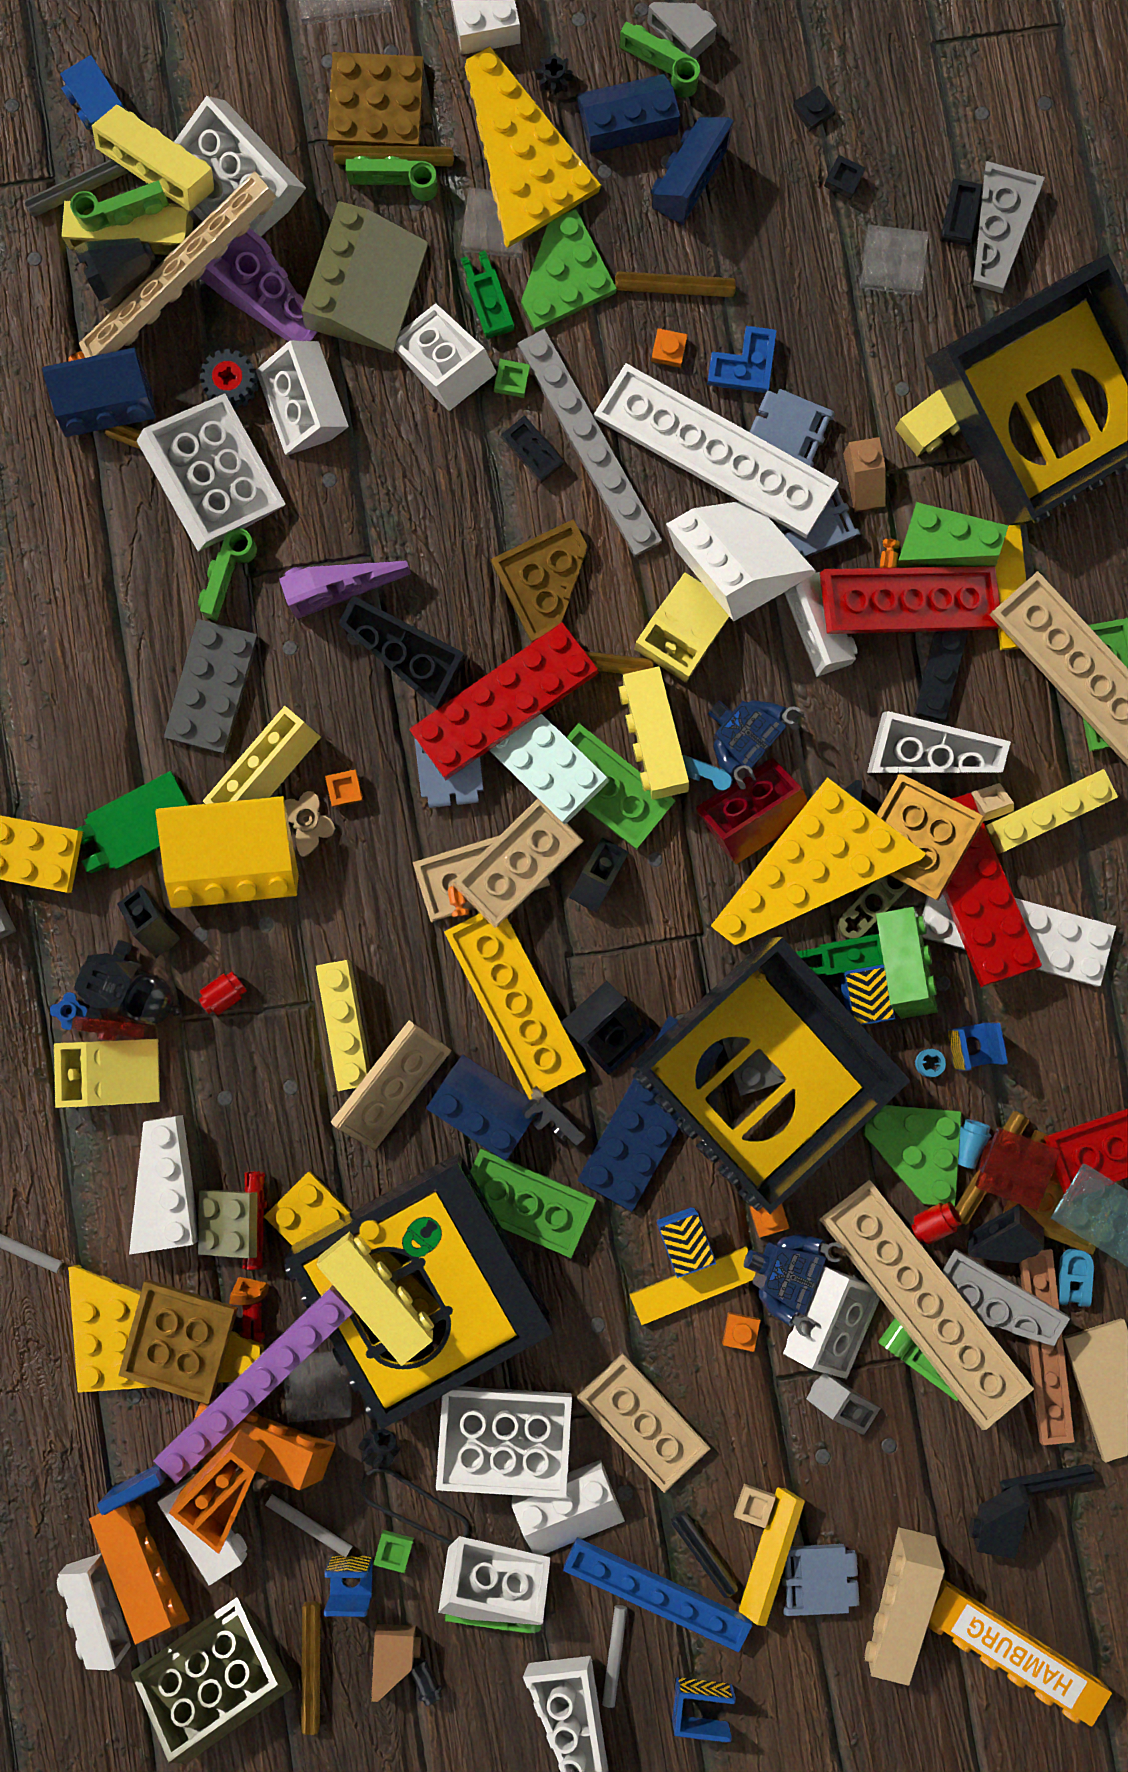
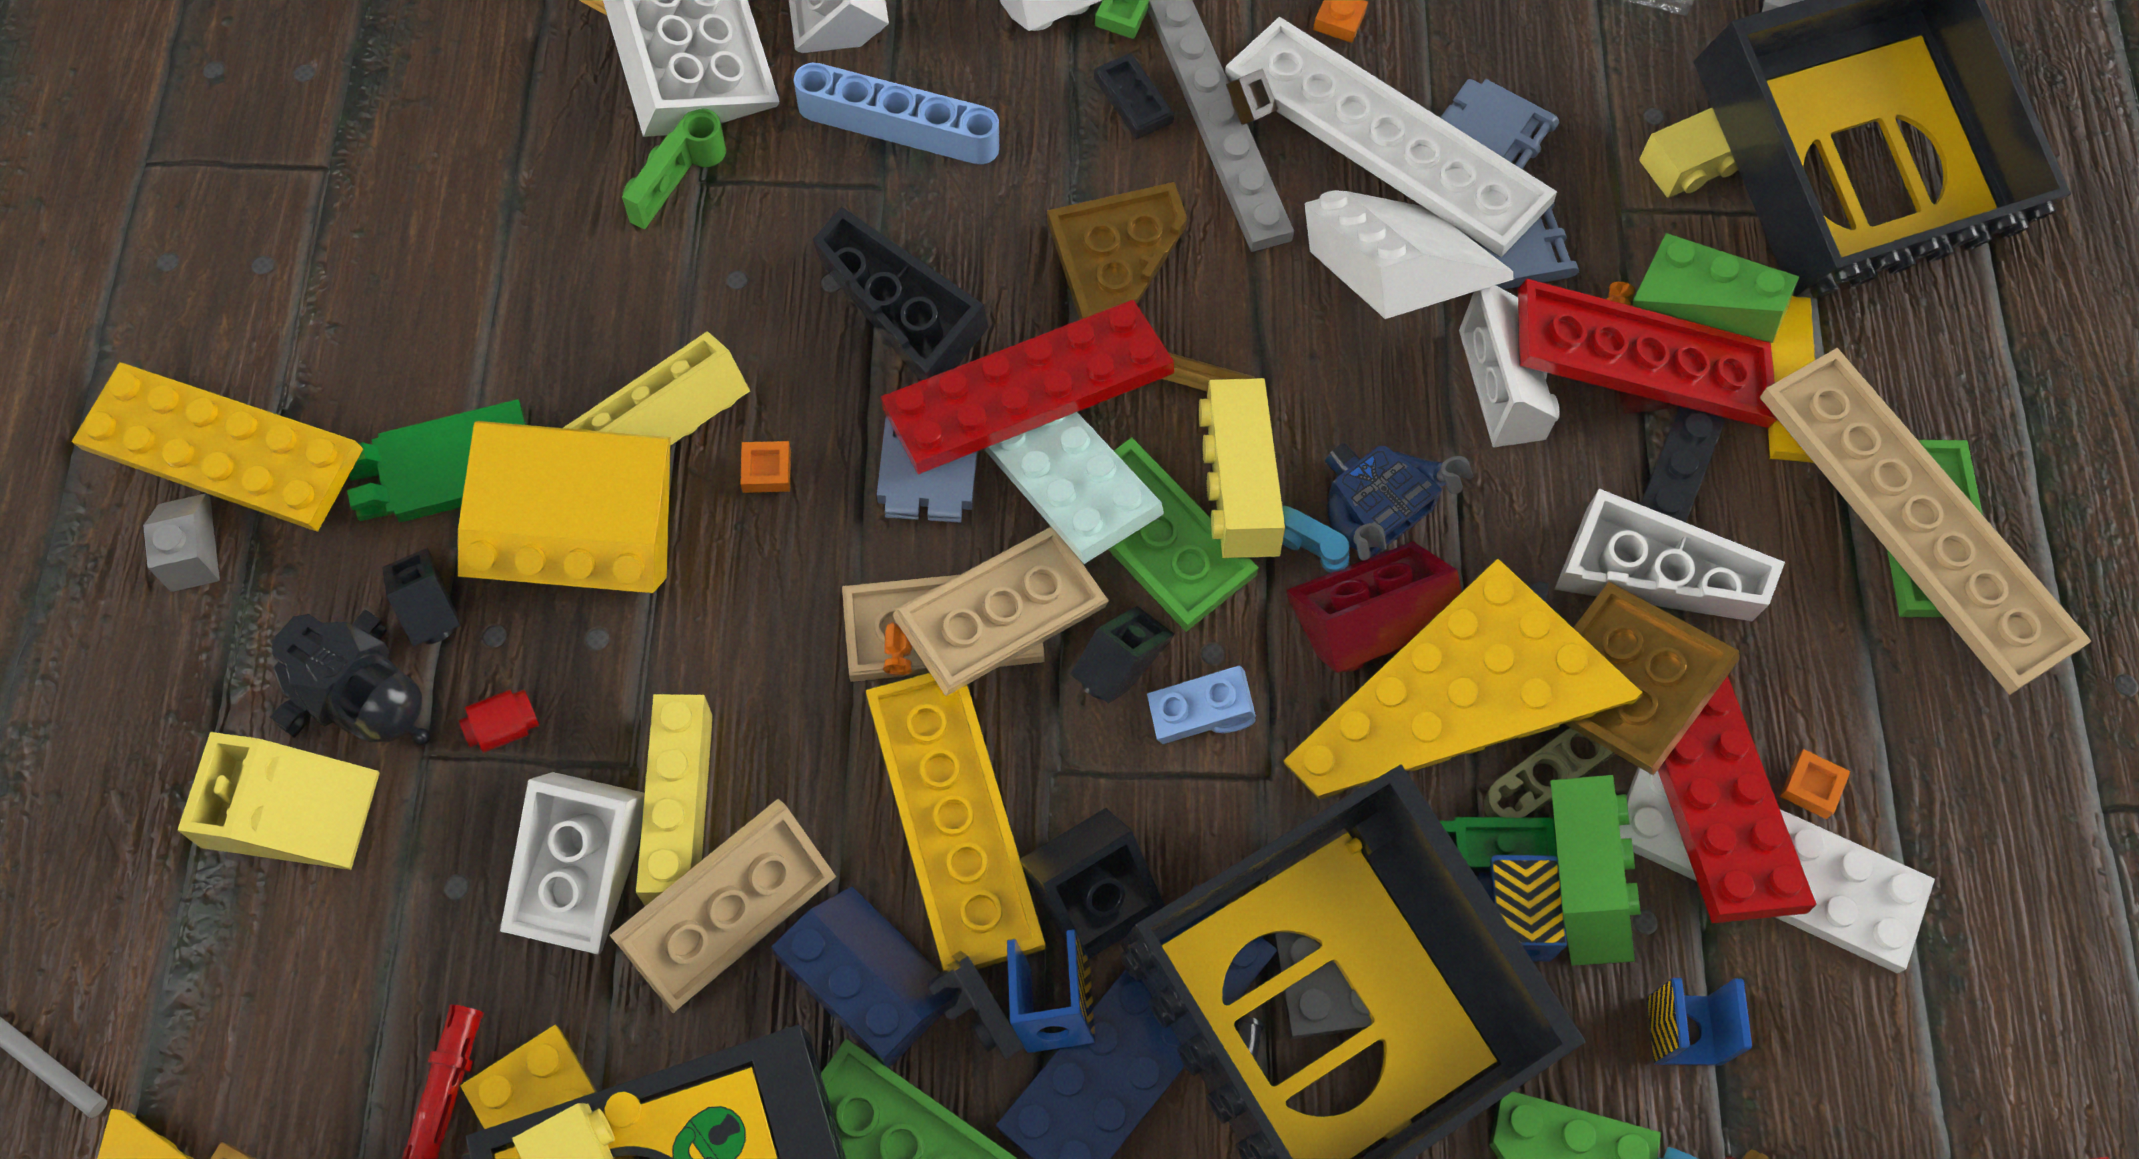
camera: 10 degrees right, 20 degrees down
(68, 1001) = (254, 718): blue plate -> none
(107, 1028) = (303, 729): clear red plate -> none
(164, 1189) = (311, 1007): white wedge -> none
(211, 686) = (610, 306): dark grey plate -> none
(227, 1223) = (396, 1082): olive plate -> none
(291, 1071) = (571, 860): none -> white slope
(308, 822) = (700, 507): tan animal -> none
(324, 586) = (799, 204): medium lavender wedge -> none
(358, 489) = (897, 113): none -> light blue beam
(578, 1109) = (1076, 1019): none -> blue piece
(617, 441) = (1251, 96): none -> dark brown plate
(654, 900) = (1203, 704): none -> light blue plate
(682, 628) = (1305, 344): light yellow slope -> none
(745, 371) = (1441, 55): blue plate -> none
(866, 474) = (1595, 197): medium nougat slope -> none
(930, 1072) = (1615, 1027): dark azure bush -> none
(993, 801) = (1755, 659): tan plate -> none
(1040, 878) = (1815, 784): none -> orange plate
(1050, 811) = (1839, 684): light yellow brick -> none

